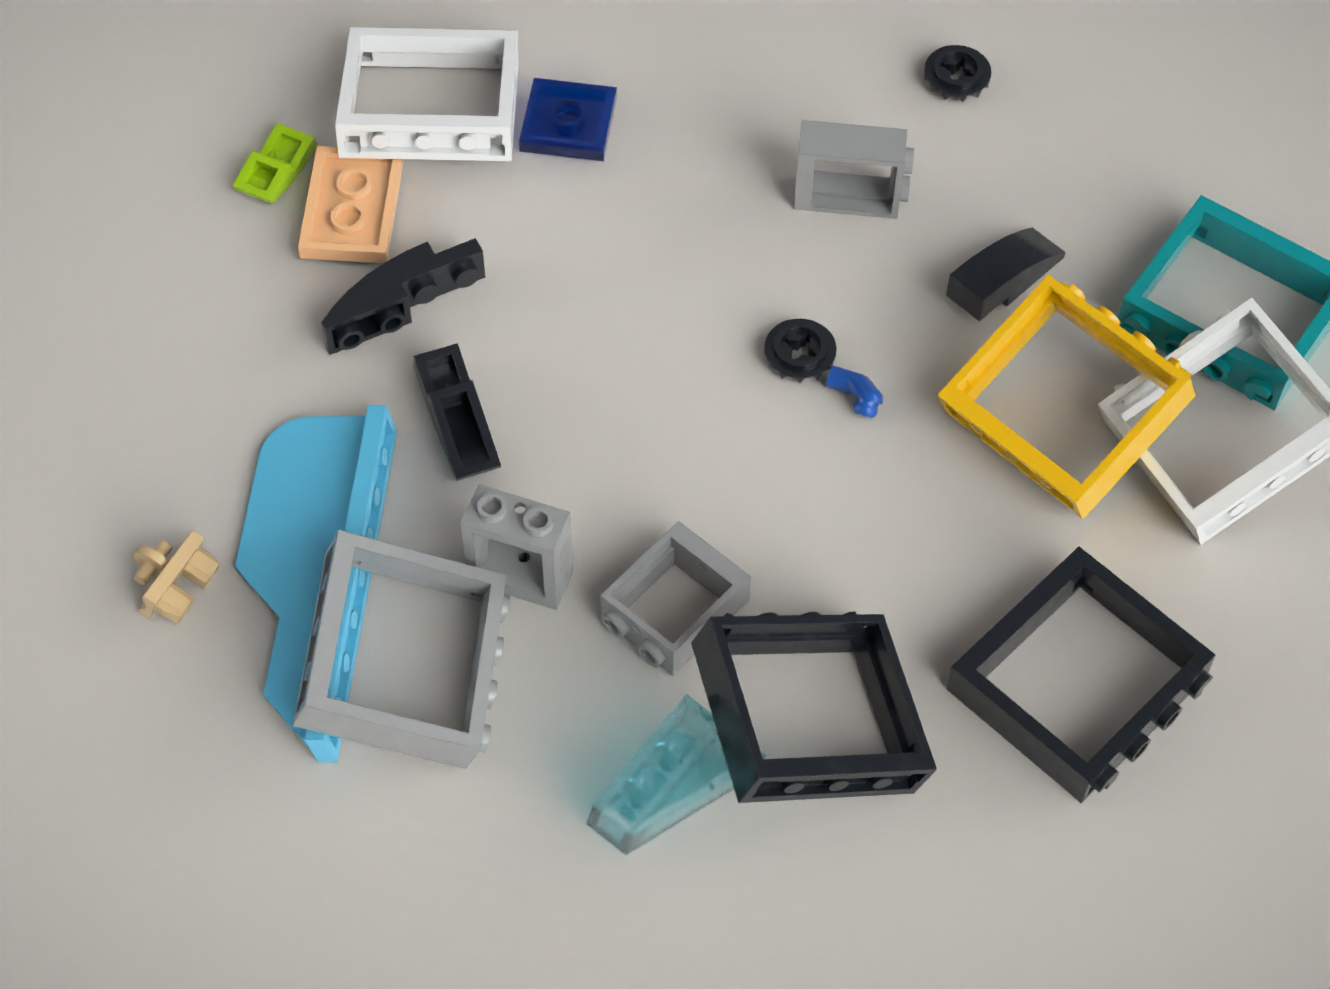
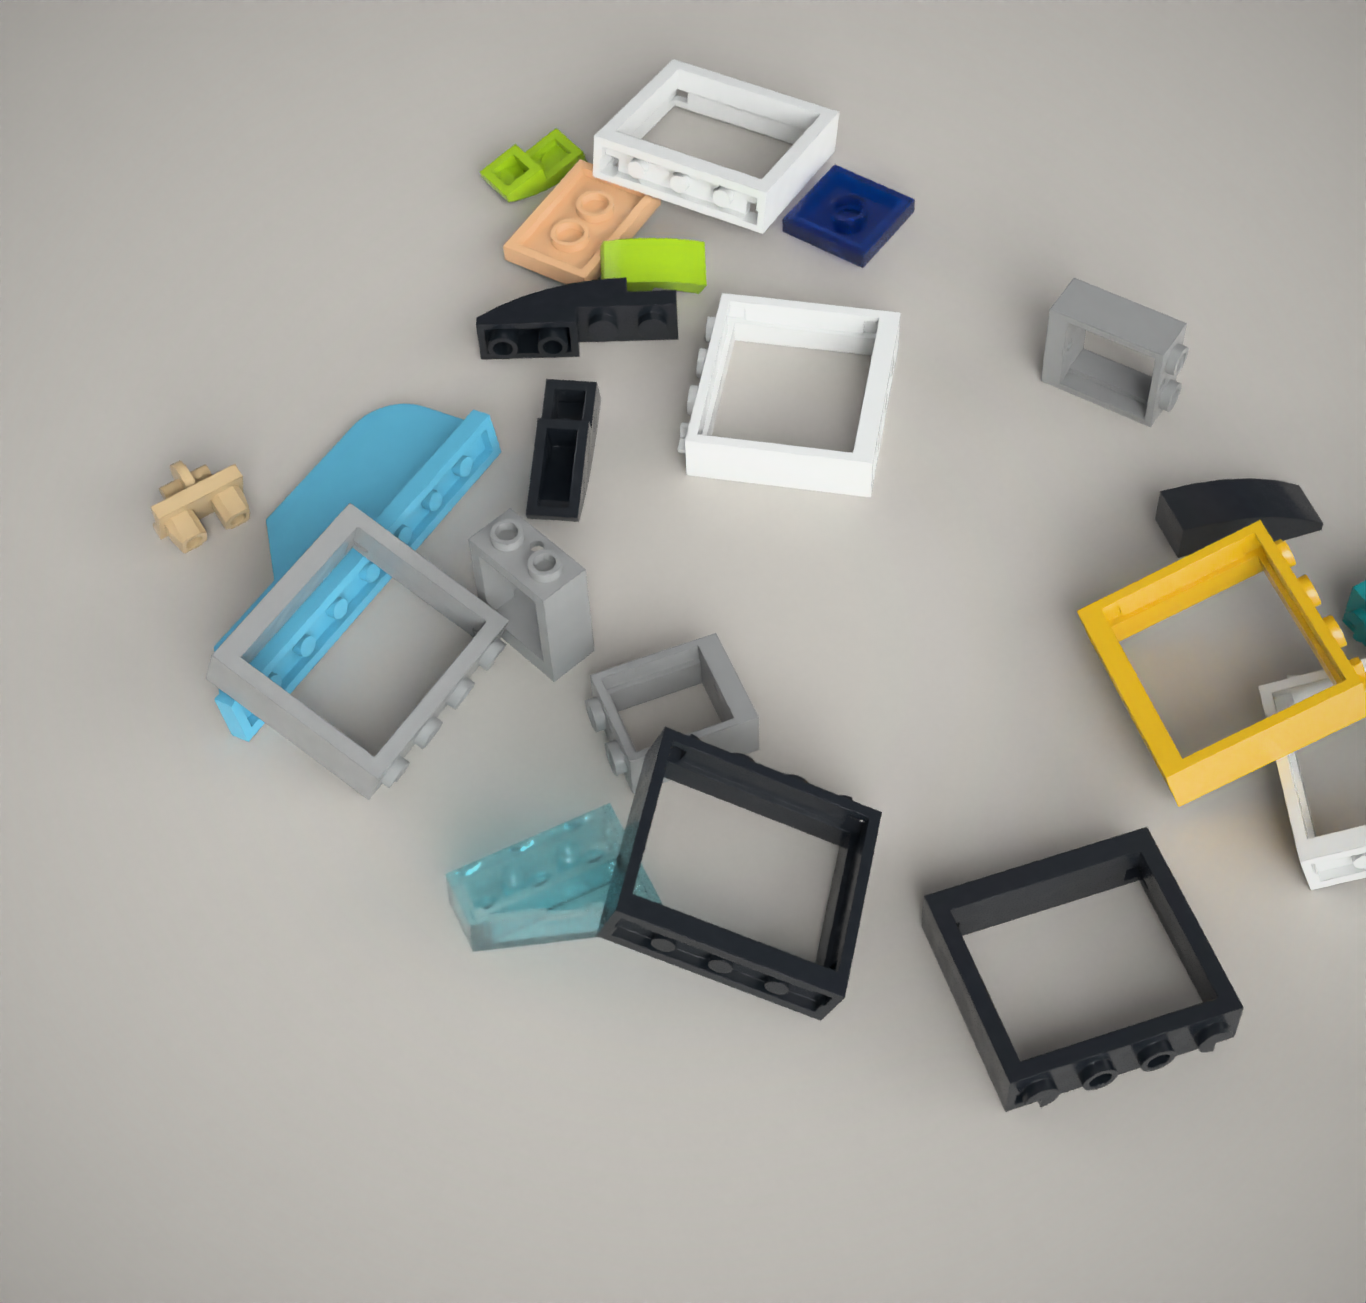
camera: 30 degrees right, 5 degrees down
(435, 219) = (655, 263): none -> lime slope
(601, 228) = (795, 326): none -> white window
(792, 336) = (963, 502): black gear -> none
(857, 385) = (1003, 577): blue arm -> none
(947, 61) = (1302, 287): black gear -> none

